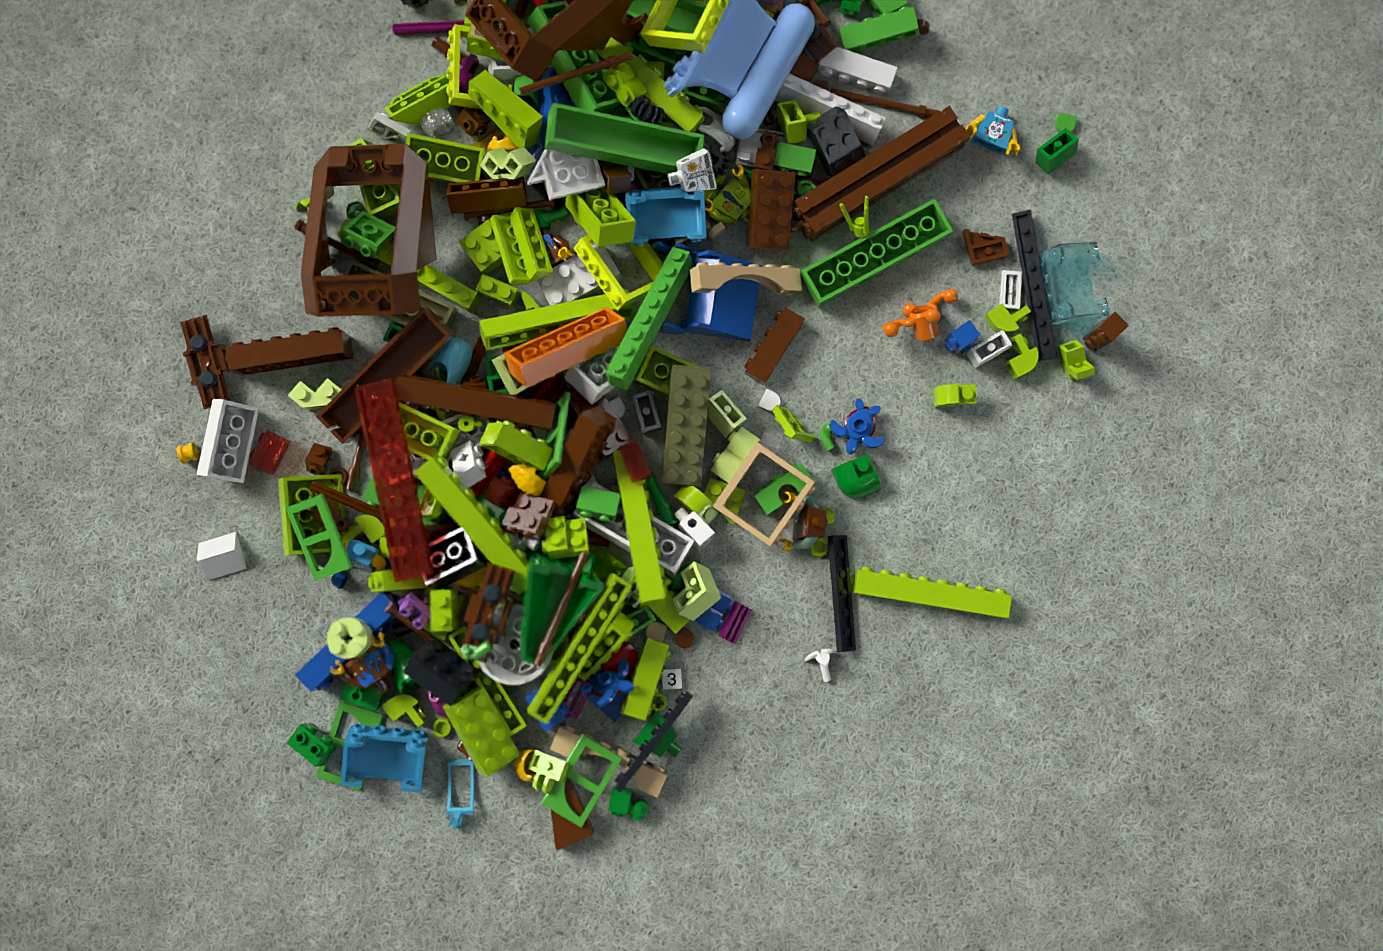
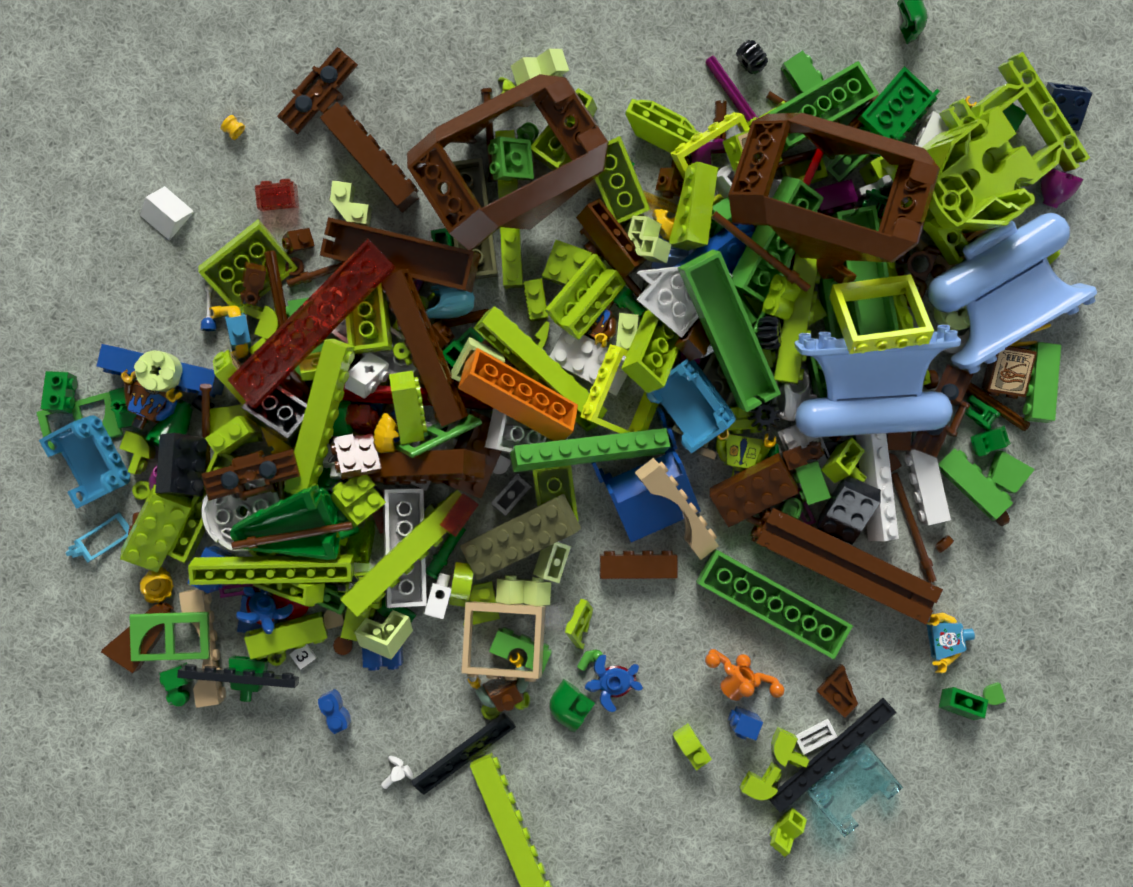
camera: 60 degrees right, 5 degrees up
(228, 441) = (261, 155): white brick -> none
(308, 154) = (550, 62): none -> yellowish green brick
(339, 558) = (220, 317): bright green window -> none
(387, 128) = (615, 108): white wing -> none
(417, 608) = (222, 409): medium lavender hips -> none
(437, 123) = (648, 153): clear gear -> none
(474, 652) = (210, 488): bright green arm -> none
(547, 766) = (162, 601): hinge -> none
(569, 230) = (626, 330): none -> yellowish green brick
(598, 504) = (404, 506): bright green brick -> none
(694, 172) = (740, 408): torso -> none
(737, 623) = (382, 679): magenta tile -> none
(742, 681) = (336, 714): none -> blue brick
(769, 400) = (589, 590): white tile -> none
(861, 224) = (789, 577): lime plant -> none
(914, 86) = (944, 543): none -> reddish brown tile
(989, 348) = (751, 752): white brick -> none
(1105, 332) = (826, 843): reddish brown brick -> none

